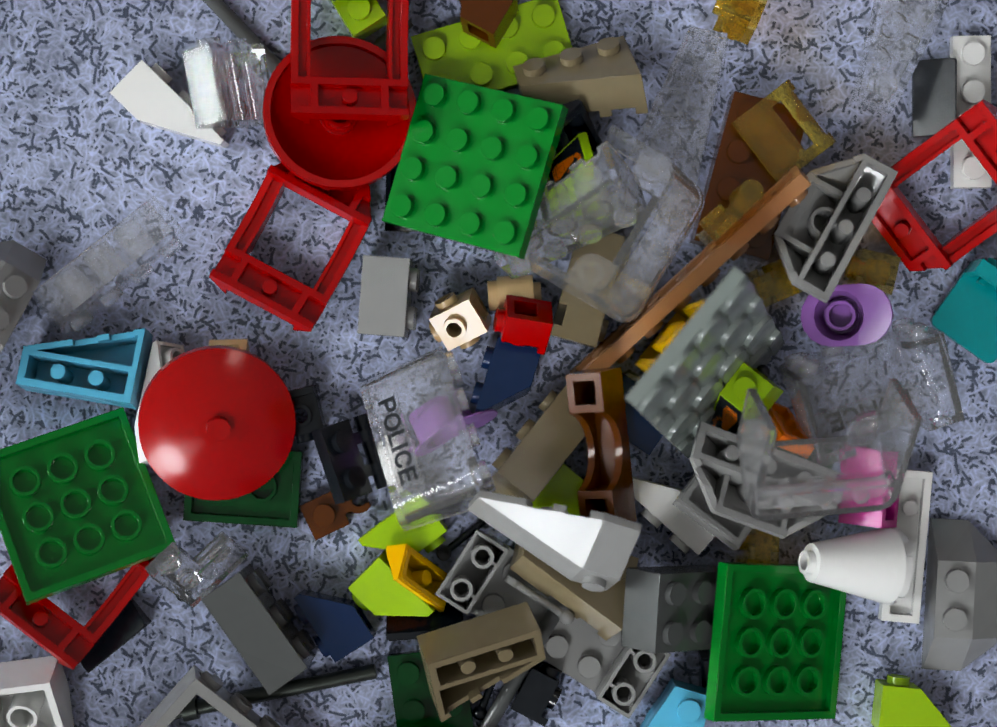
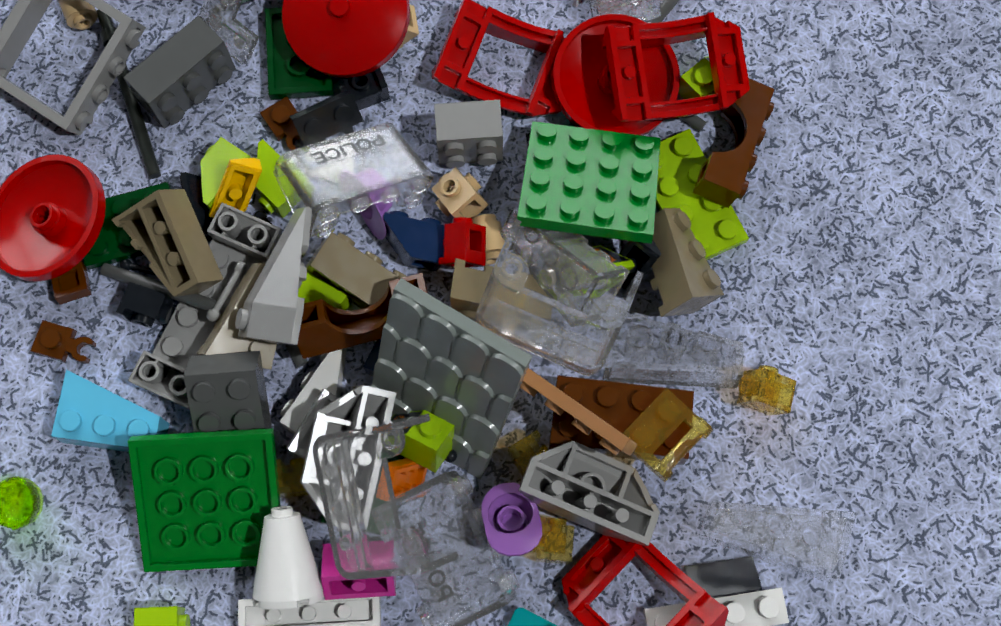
camera: 85 degrees right, 15 degrees down
(337, 622) = (191, 134): dark blue slope -> none
(722, 218) = (575, 382): clear yellow plate -> none

